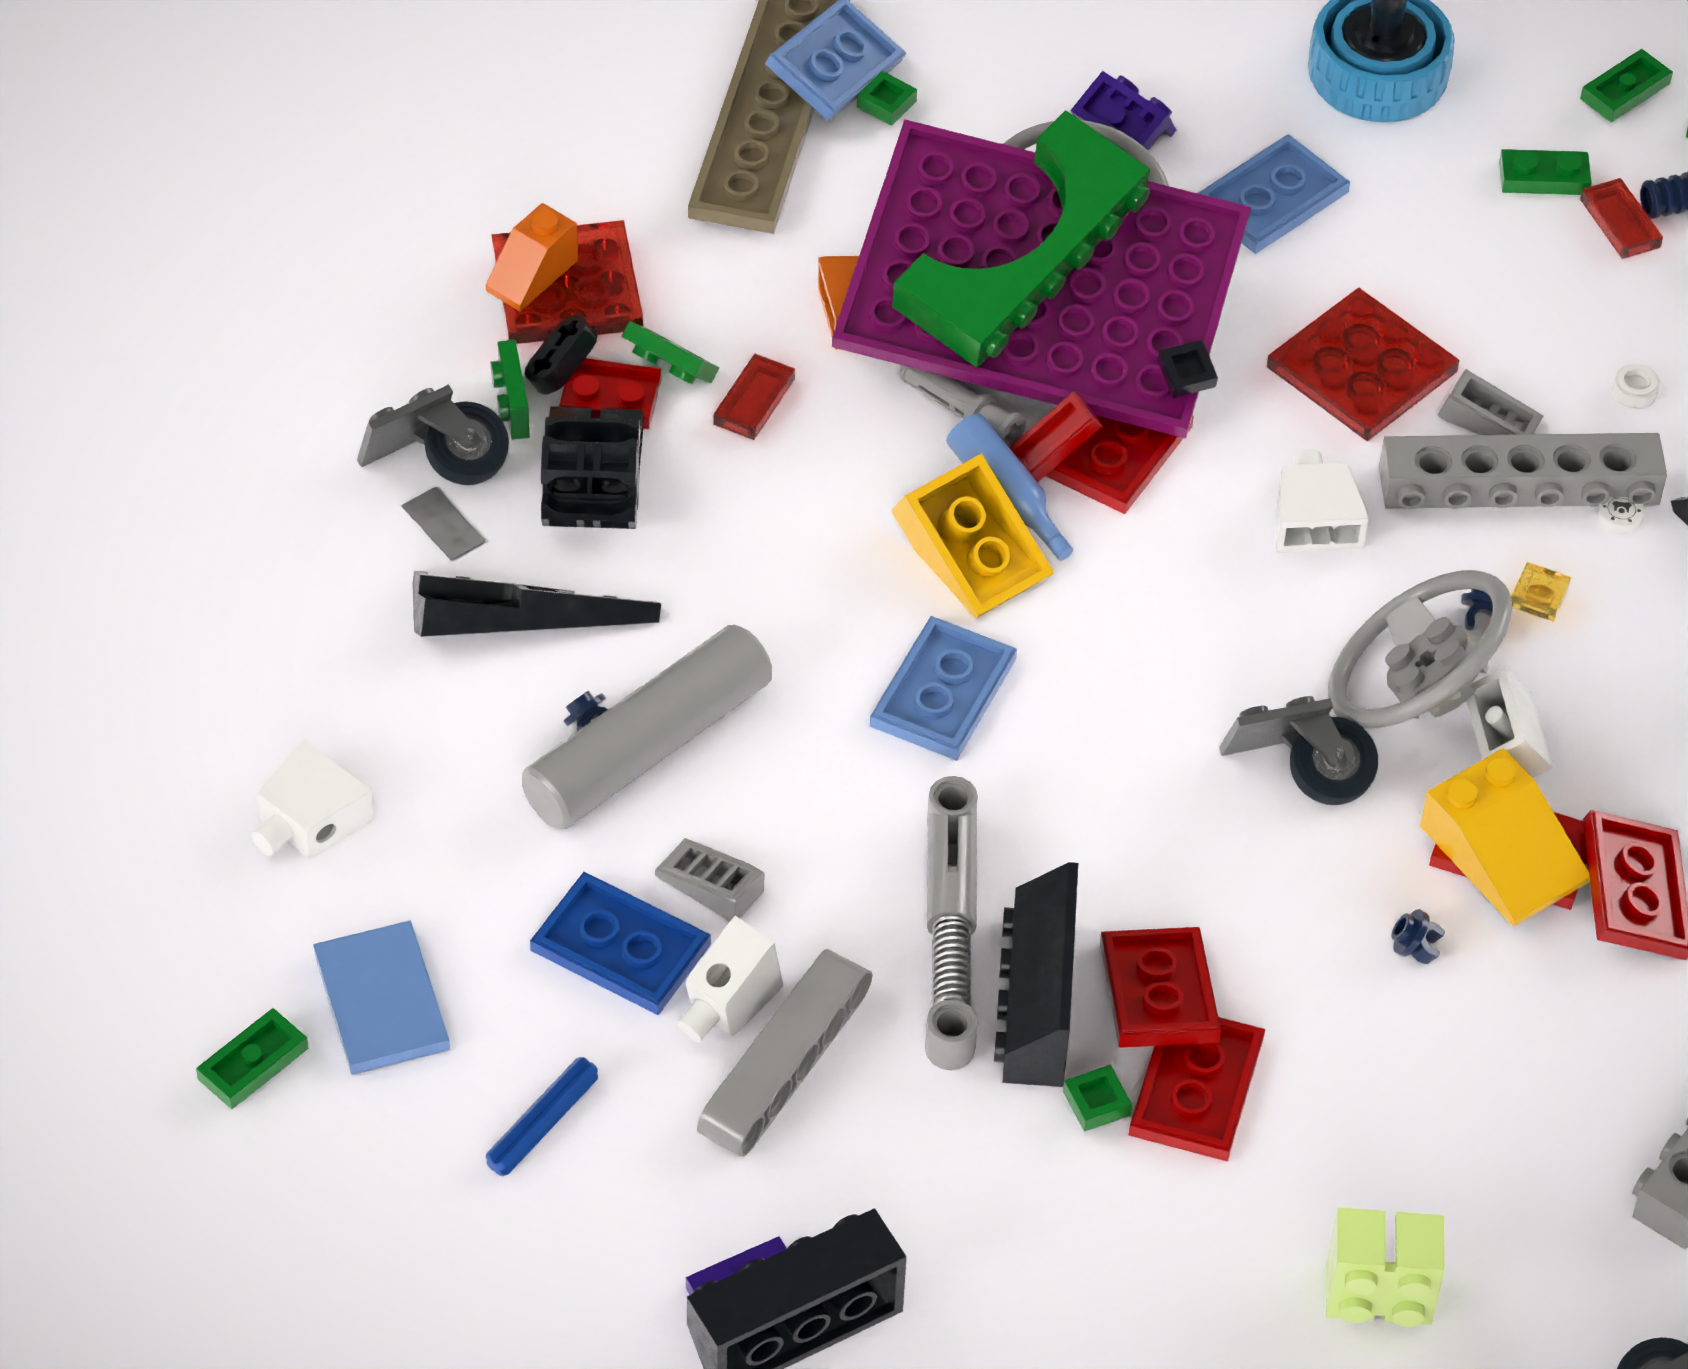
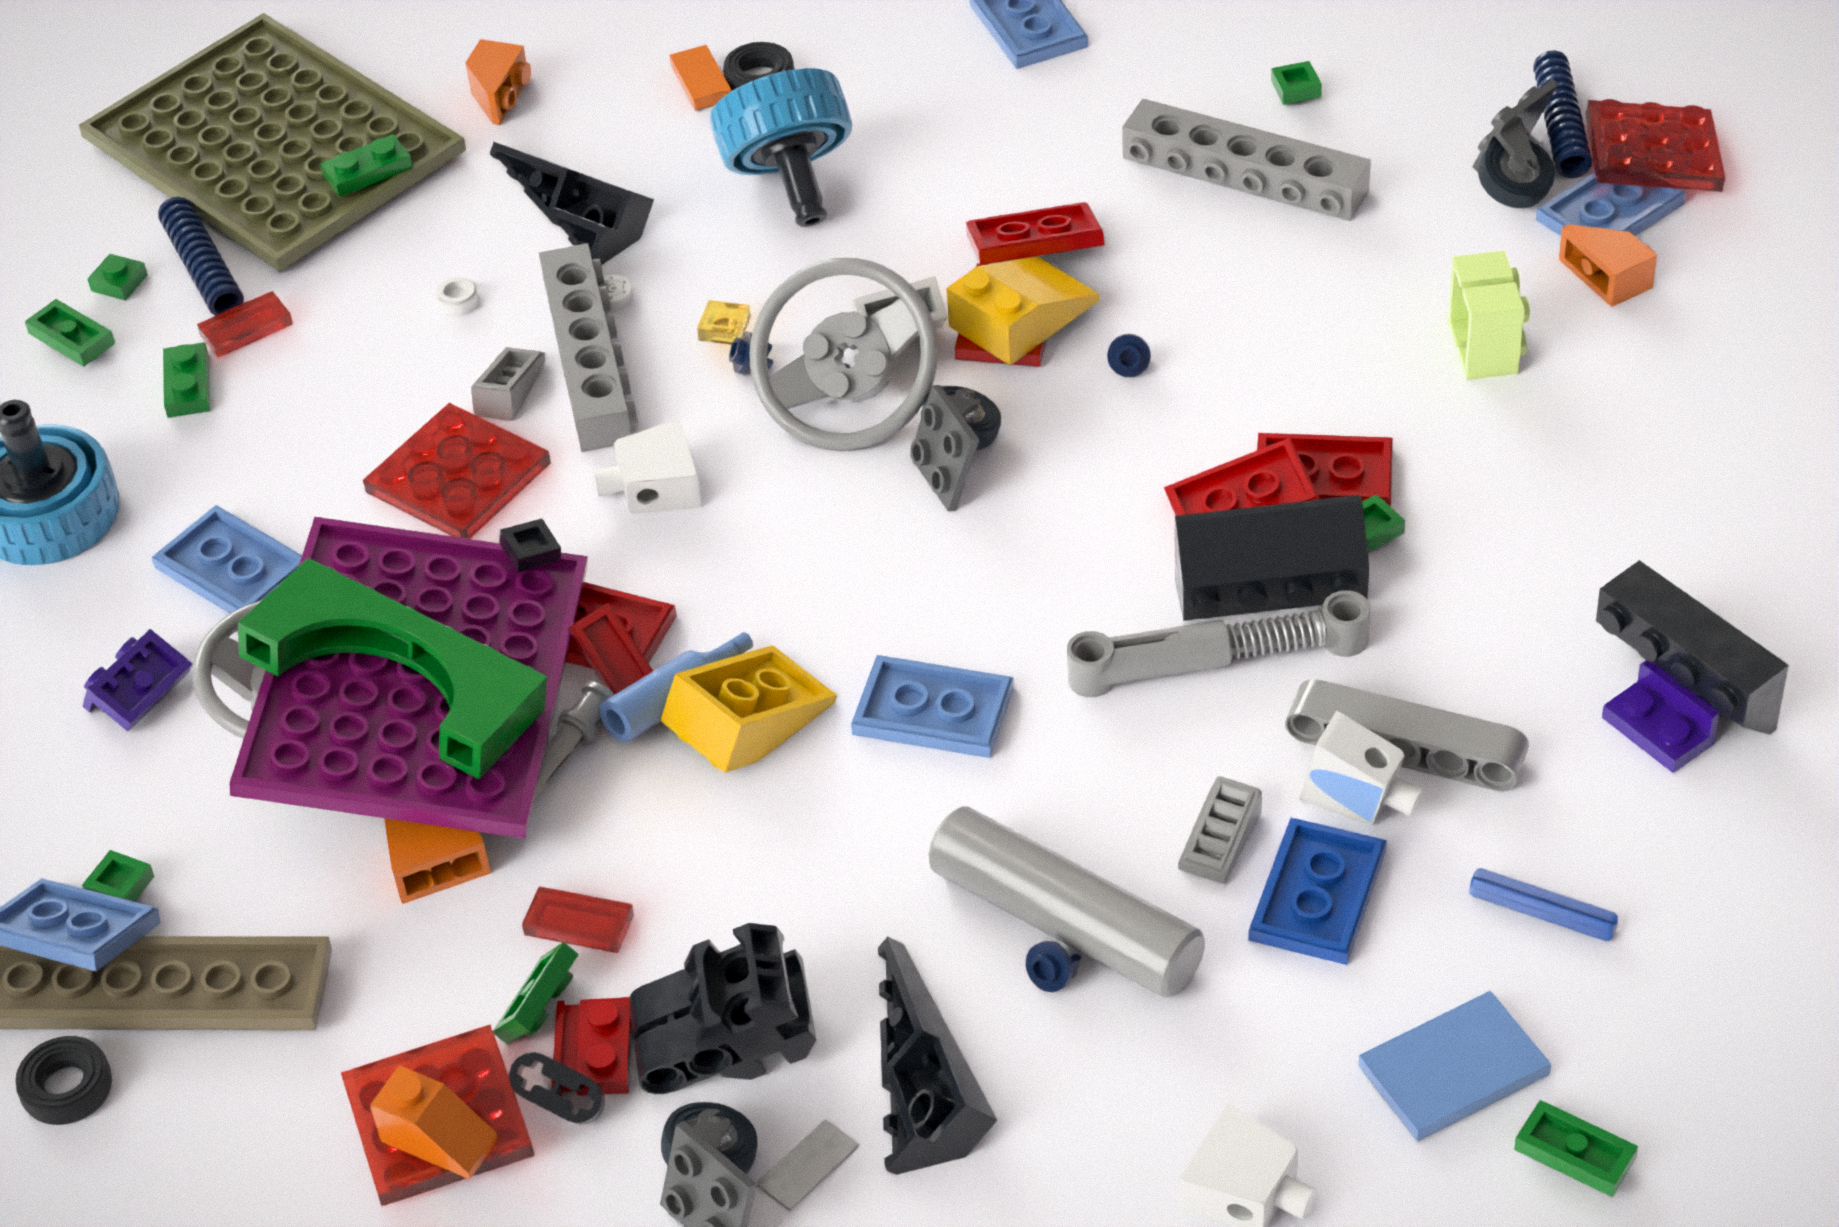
camera: 95 degrees left, 5 degrees down
(513, 402) = (613, 1124): green plate -> none
(684, 82) = (70, 1105): none -> black tyre

